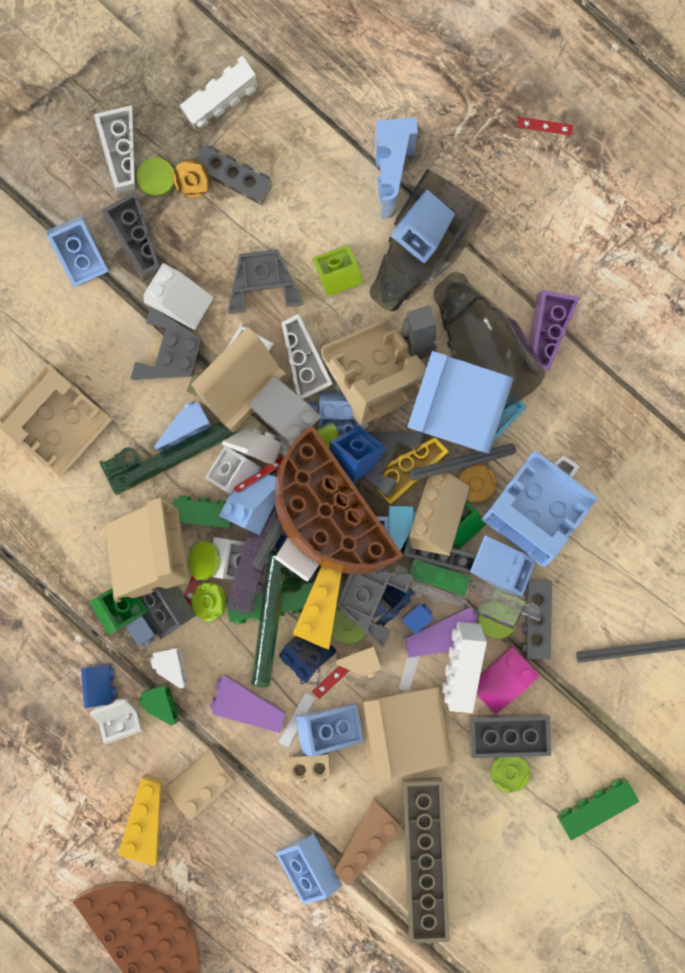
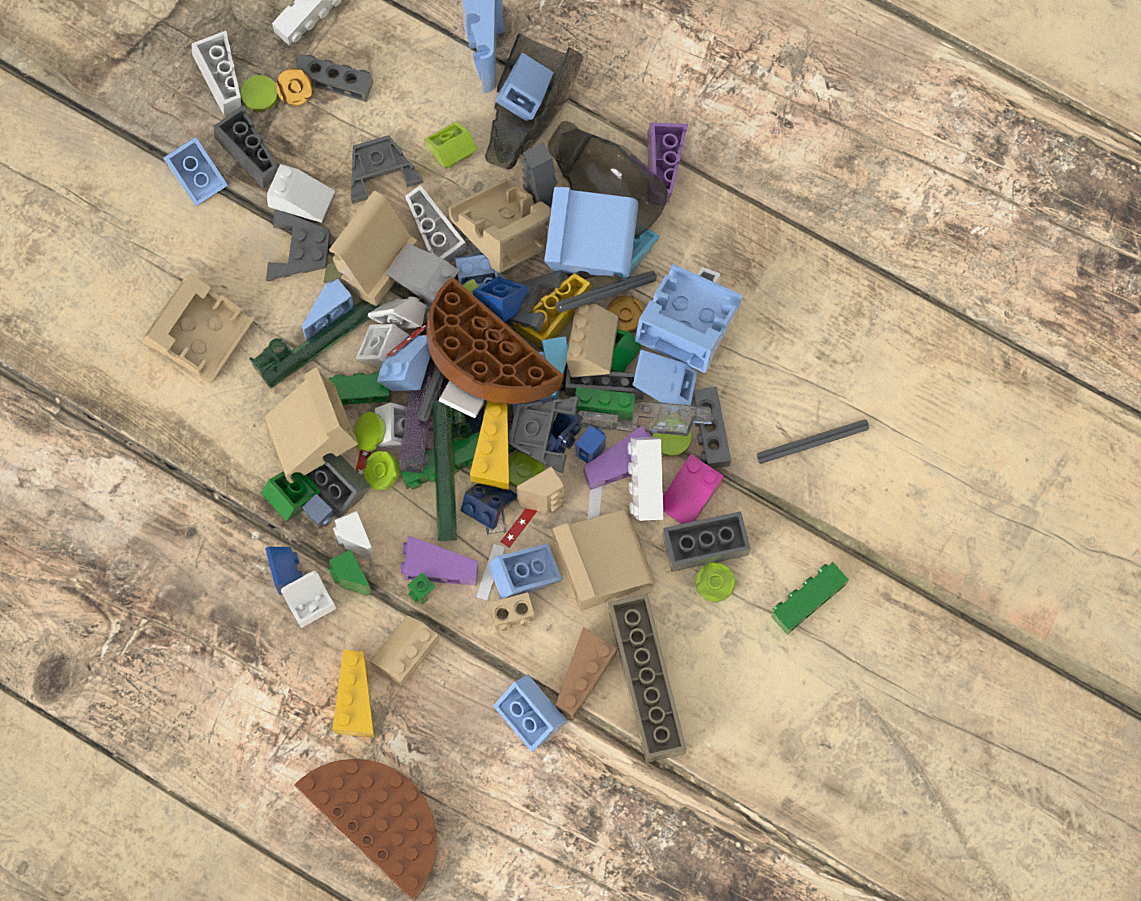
camera: 10 degrees left, 15 degrees down
(225, 729) = (420, 588): none -> green bracket

